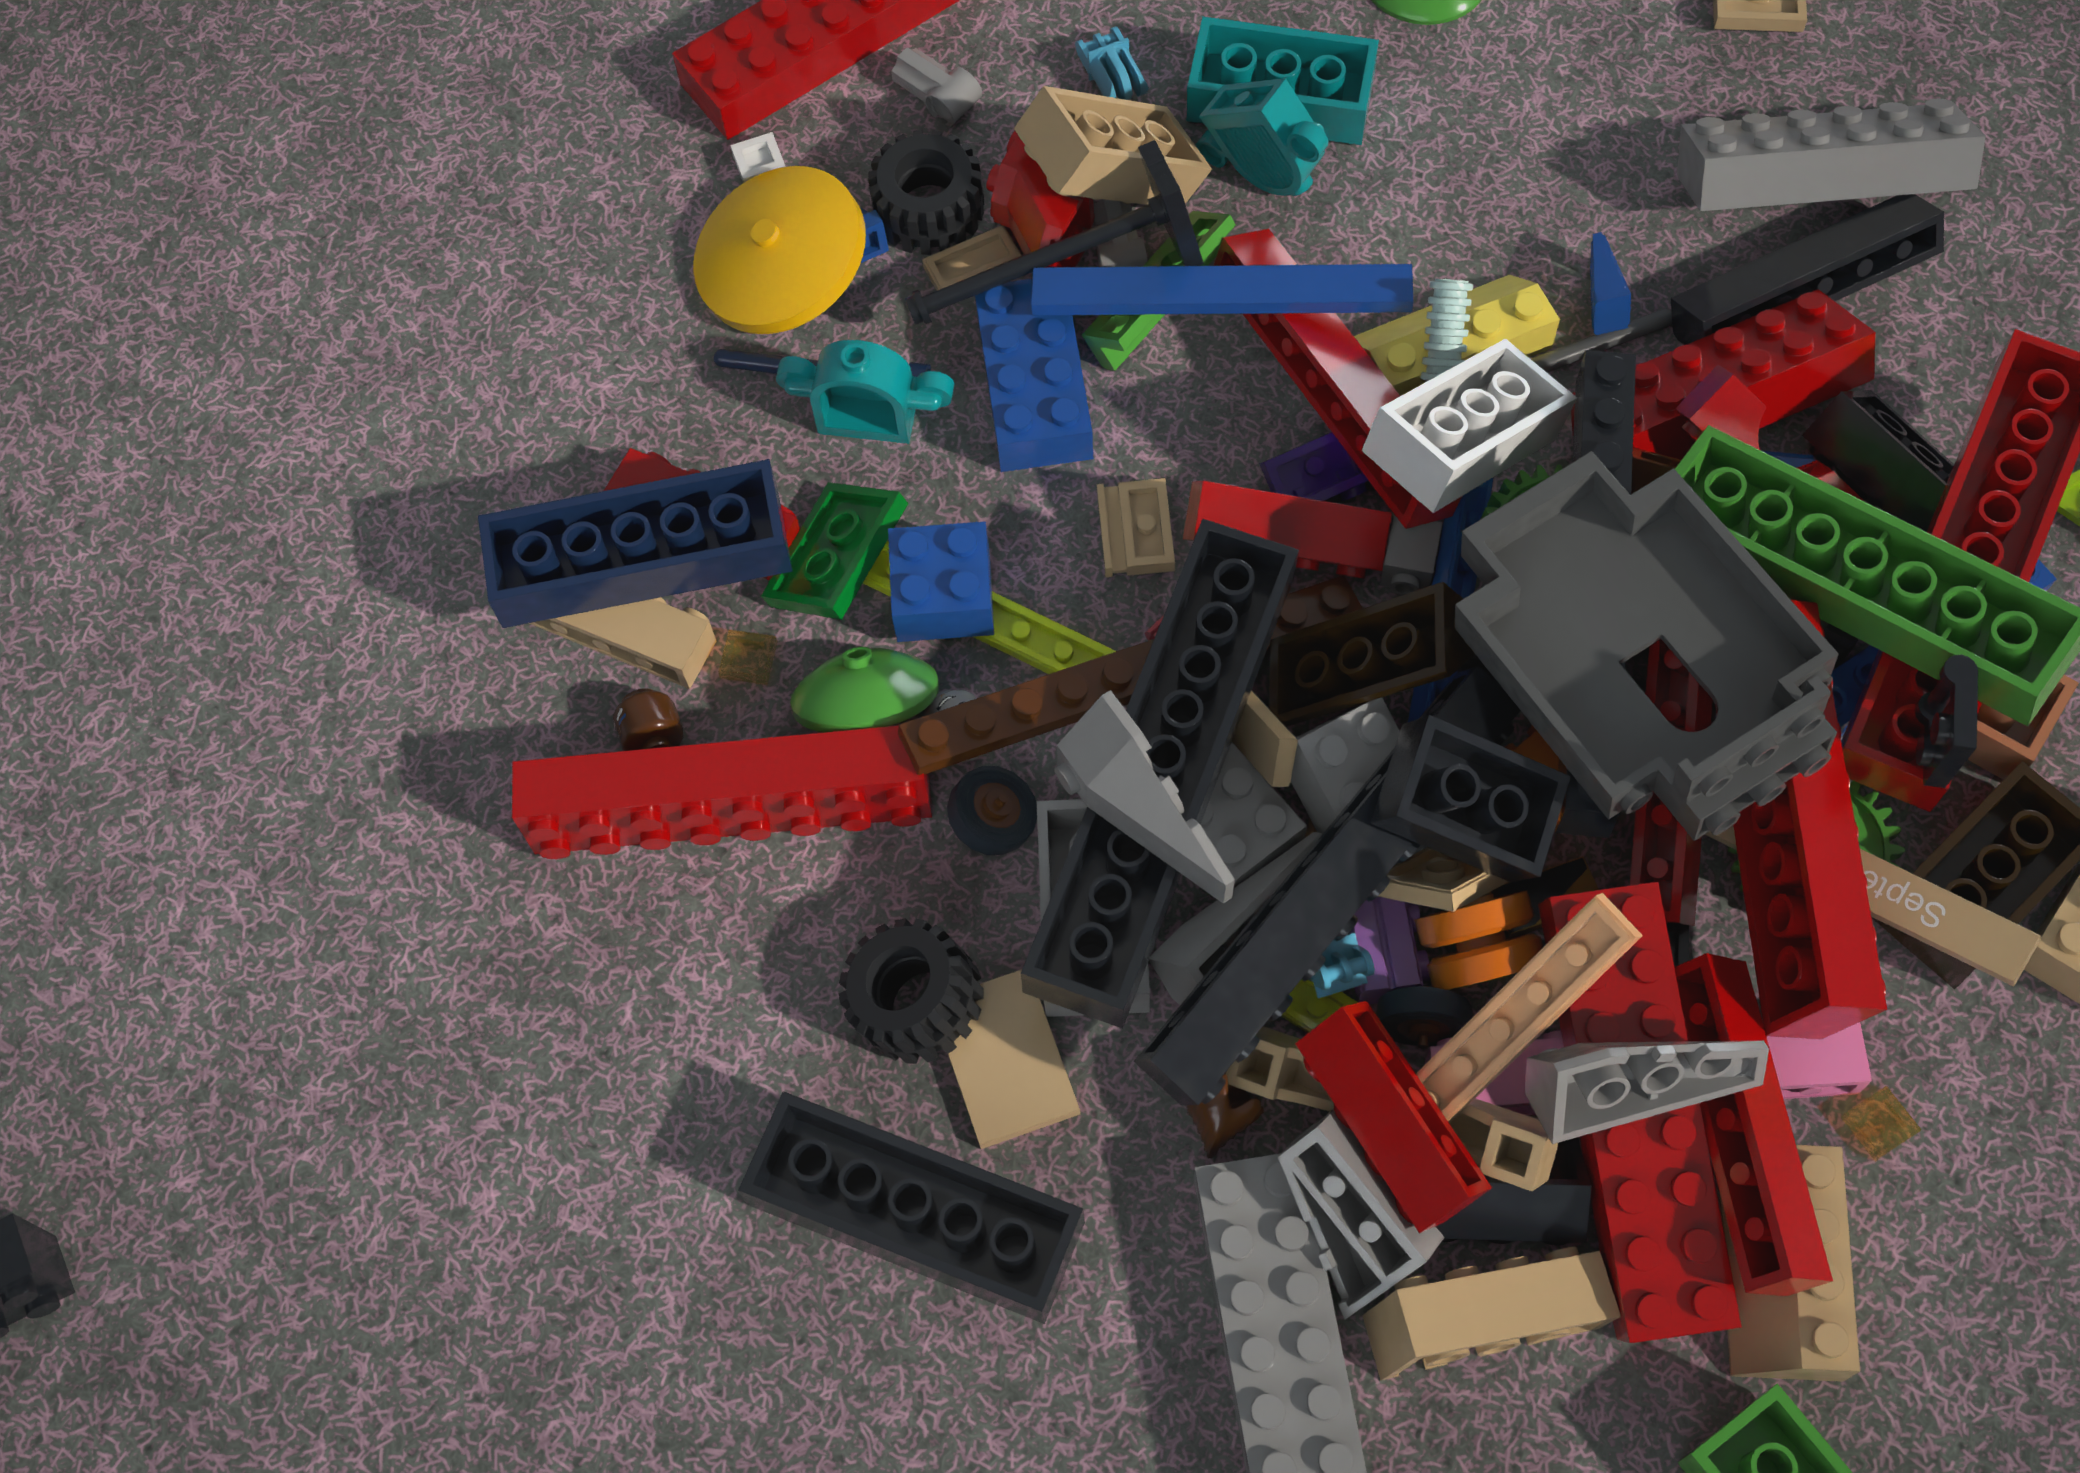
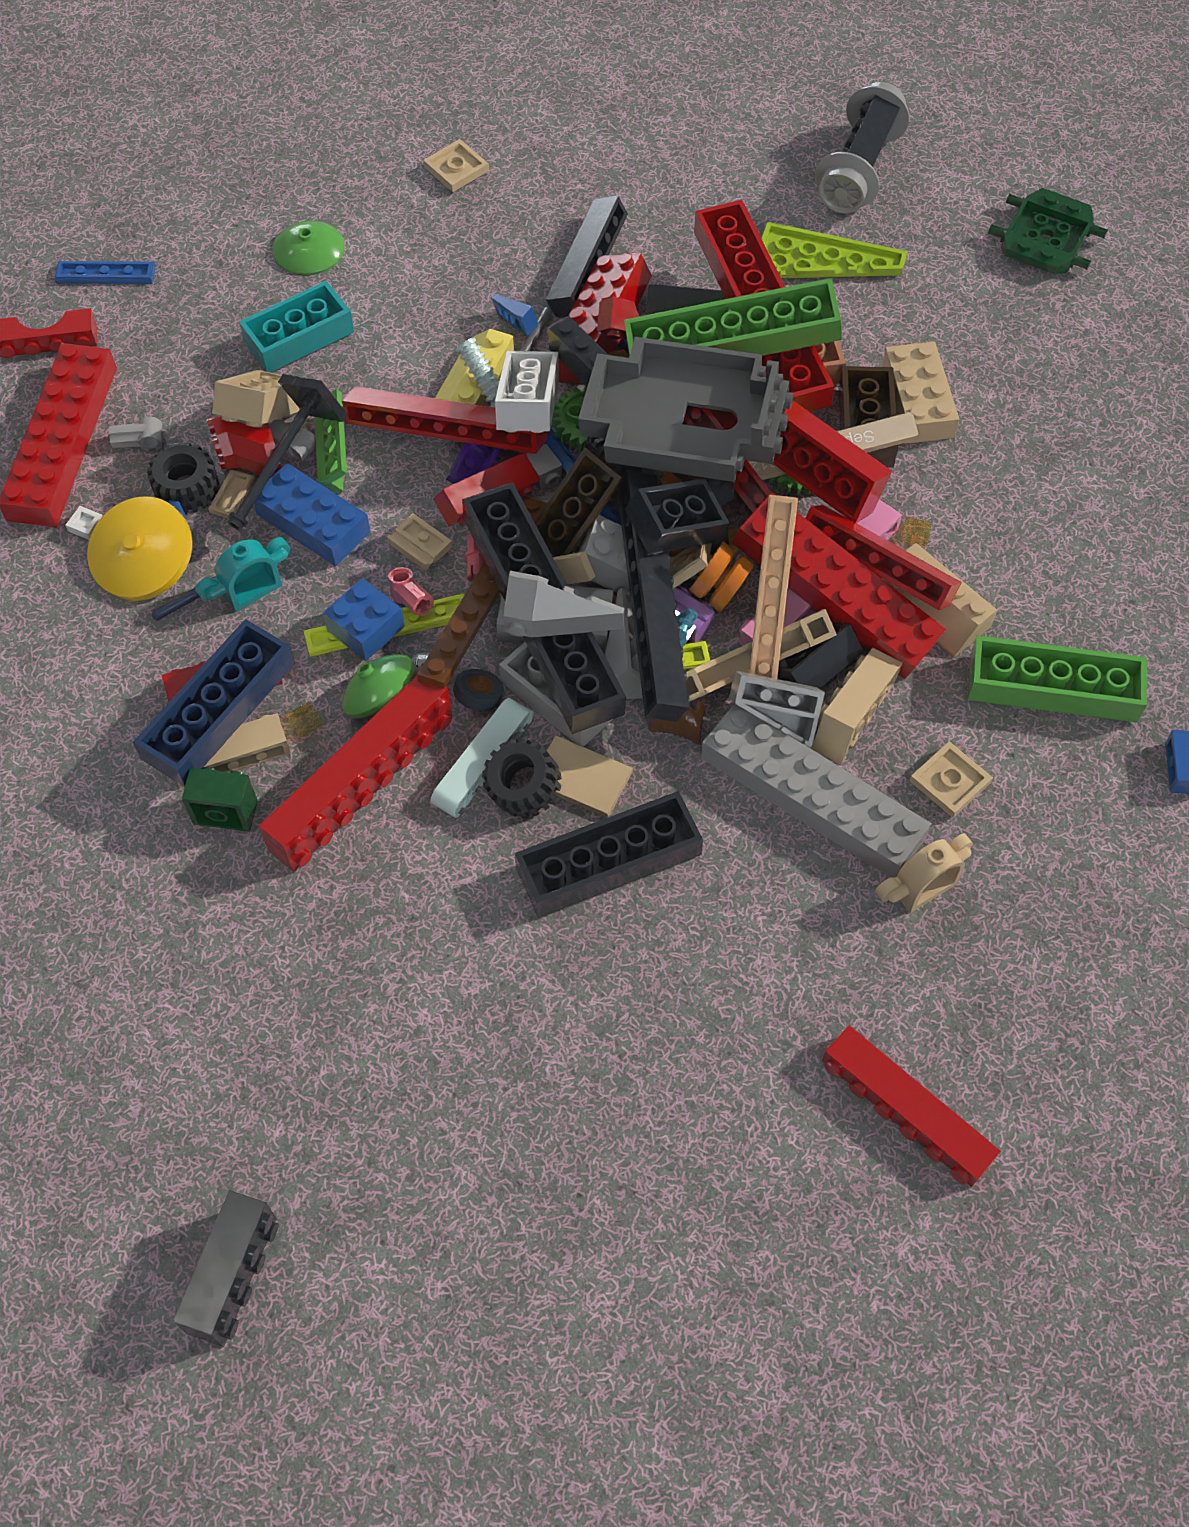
camera: 50 degrees left, 5 degrees down
(530, 678) = (220, 799): none -> dark green brick
(647, 721) = (288, 776): reddish brown head -> none
(835, 550) = (305, 633): green plate -> none
(945, 898) = (466, 774): none -> light aqua beam
(1042, 590) = (409, 592): none -> coral piece
(1111, 65) = (208, 371): medium azure arm -> none
(1222, 289) = (365, 418): blue tile -> none
(1263, 135) = (317, 348): teal piece -> none
(1392, 1116) = (761, 653): red brick -> none
(1423, 1014) = (726, 622): black wheel -> none
(1621, 1082) = (832, 566): light grey wedge -> none
(1829, 155) = (551, 206): light grey brick -> none
(1949, 722) = (824, 356): black plate -> none

